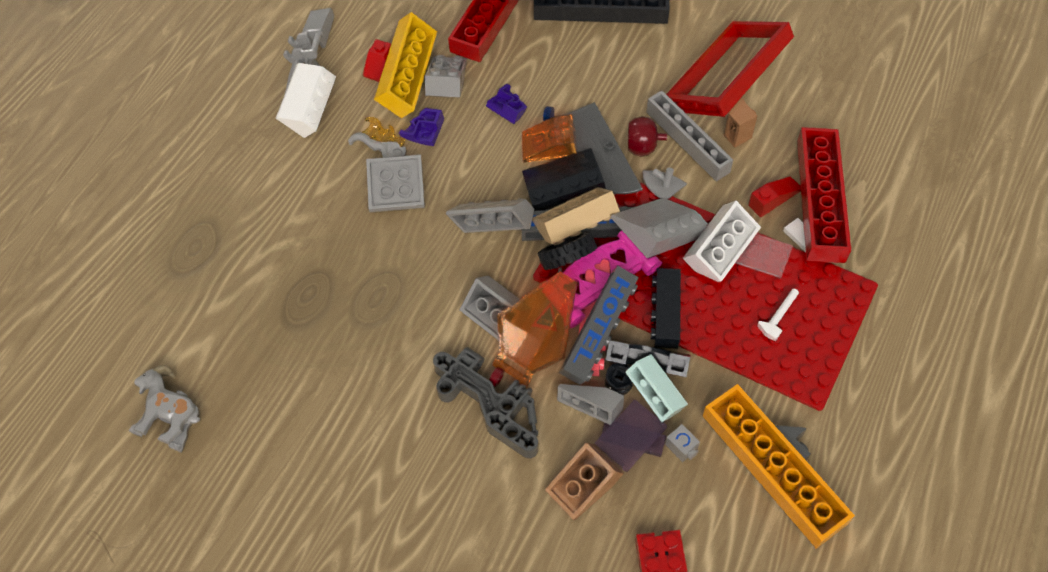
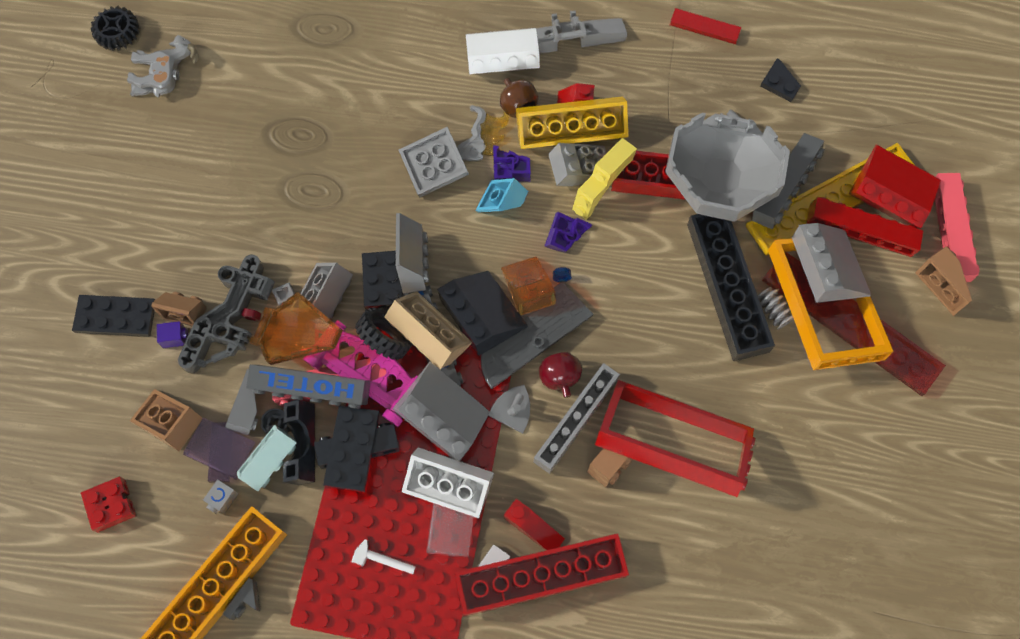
camera: 70 degrees right, 10 degrees up
(98, 449) = (115, 28): none -> black gear
(358, 100) = (517, 95): none -> reddish brown piece
(446, 516) = (114, 315): none -> black plate
(453, 139) = (502, 195): none -> medium azure slope
(467, 440) = (177, 308): none -> medium nougat slope
(473, 48) = (603, 175): none -> light yellow arch
(484, 345) = (283, 292): none -> light grey tile
(492, 457) = (171, 334): none -> dark purple brick
(504, 253) = (380, 280): none -> black piece
(672, 305) = (351, 448): none -> black plate

